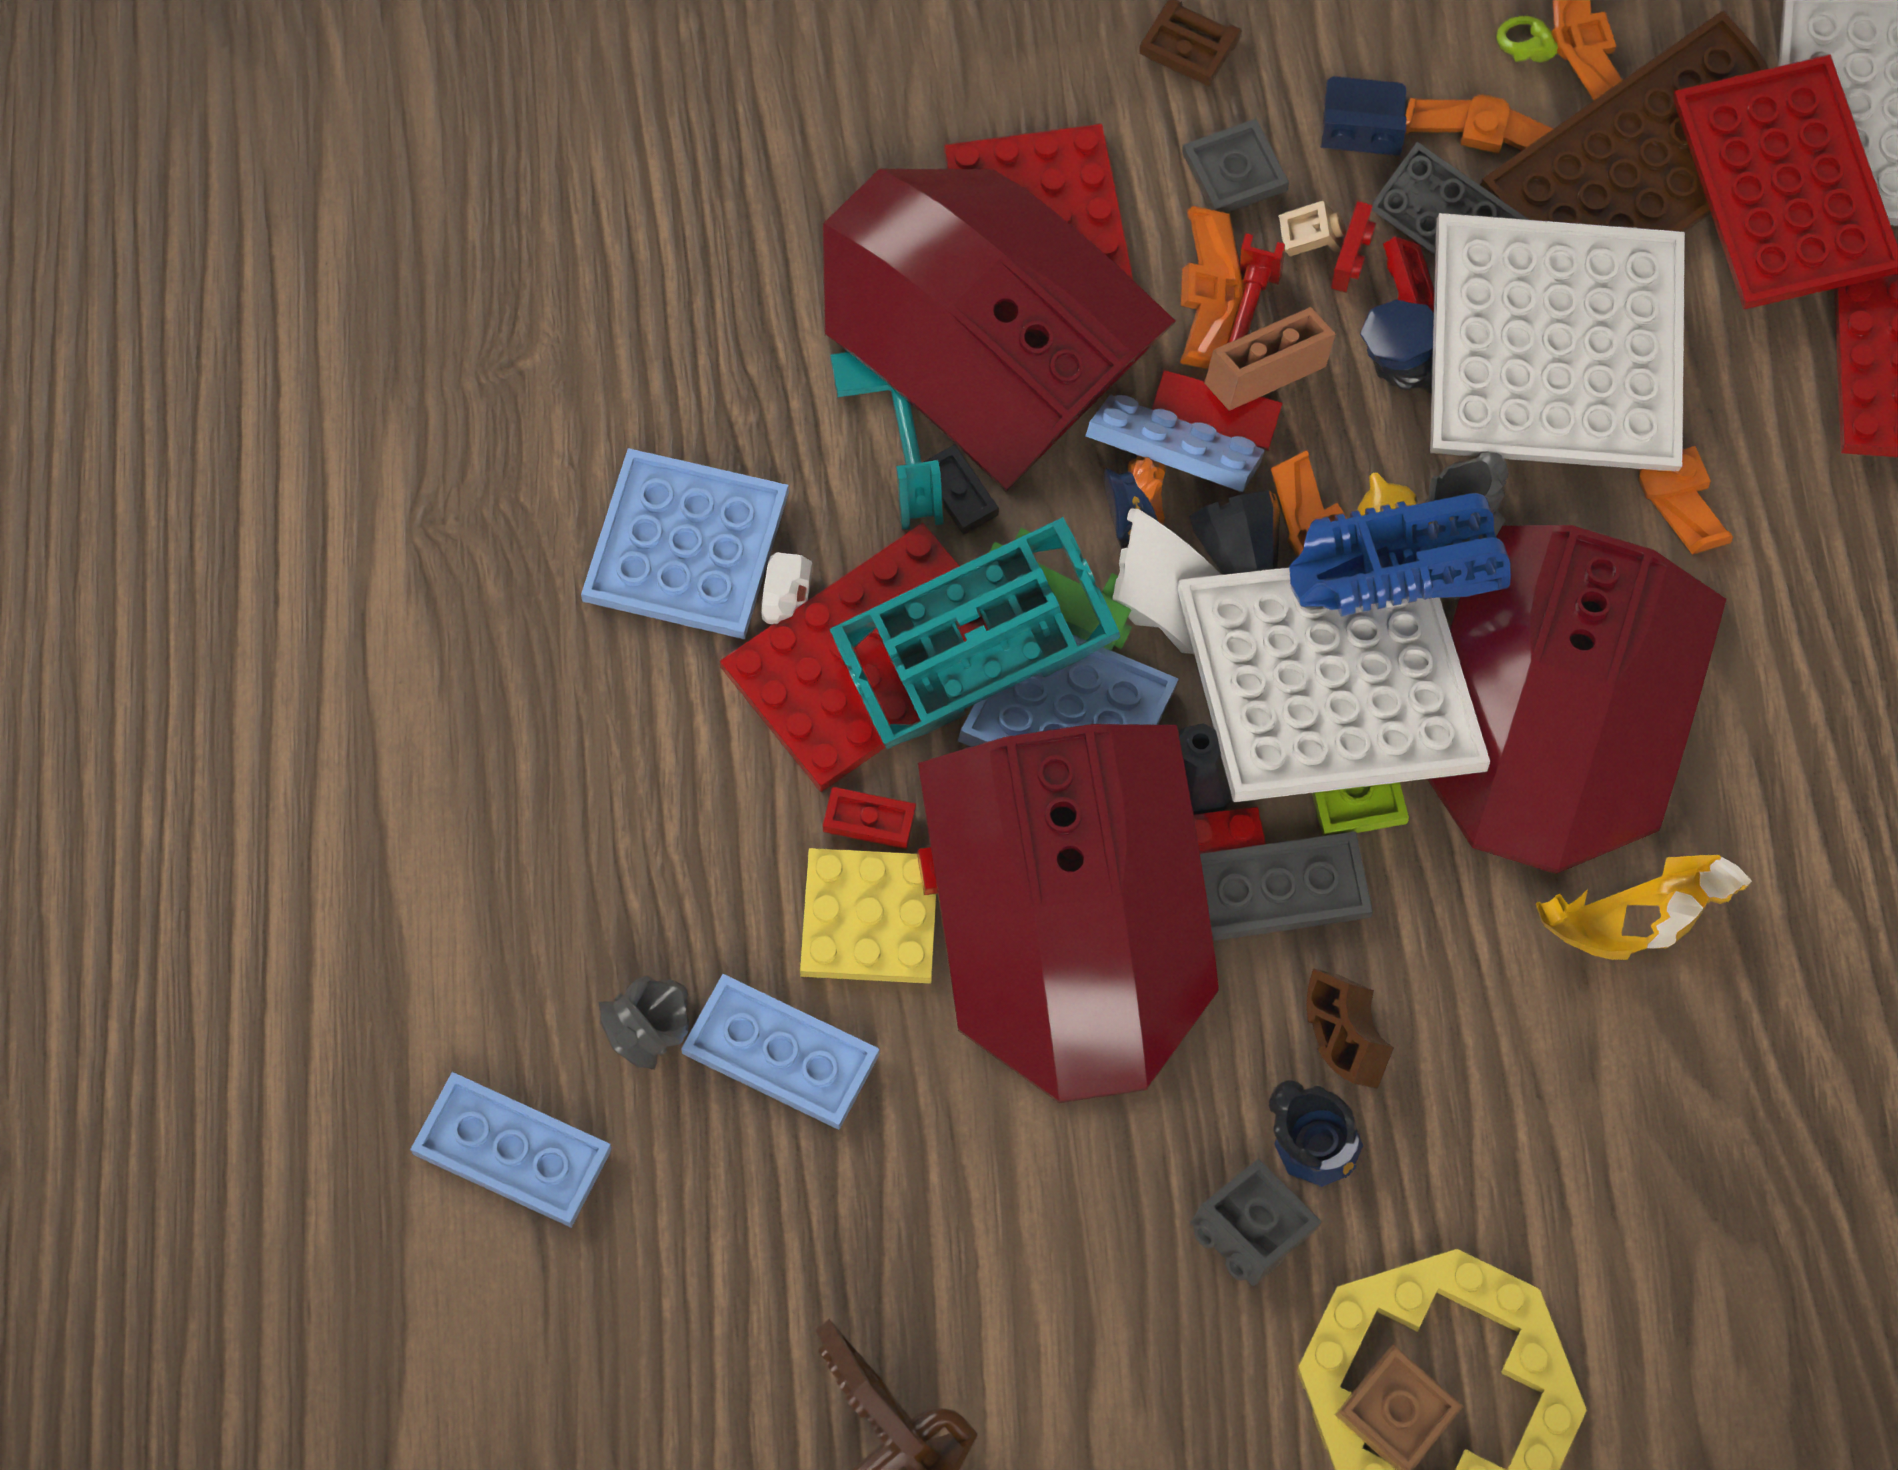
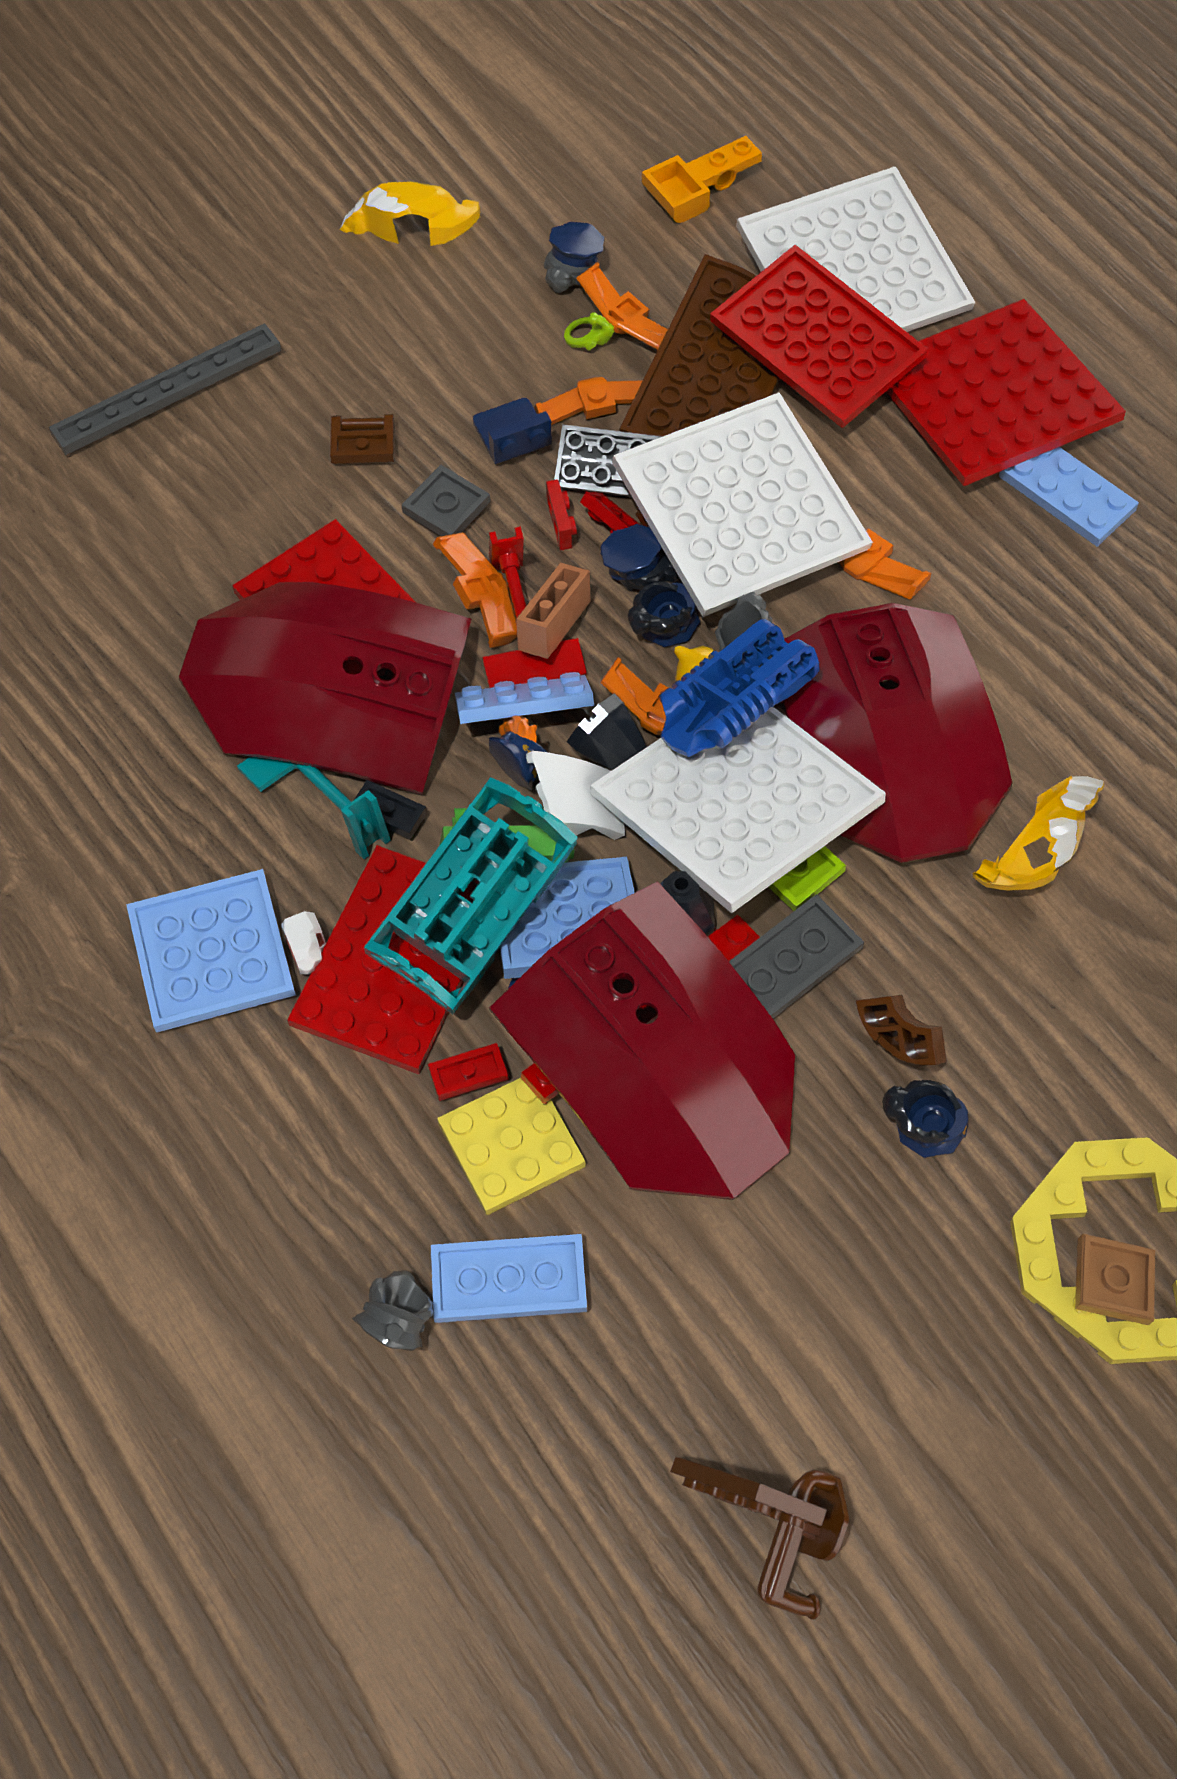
camera: 30 degrees left, 5 degrees down
(511, 1149) = (347, 1472): light blue plate -> none
(1253, 1223) = (927, 1205): dark grey plate -> none
(1312, 228) = (524, 513): tan bracket -> none
(1392, 425) = (664, 613): none -> piece

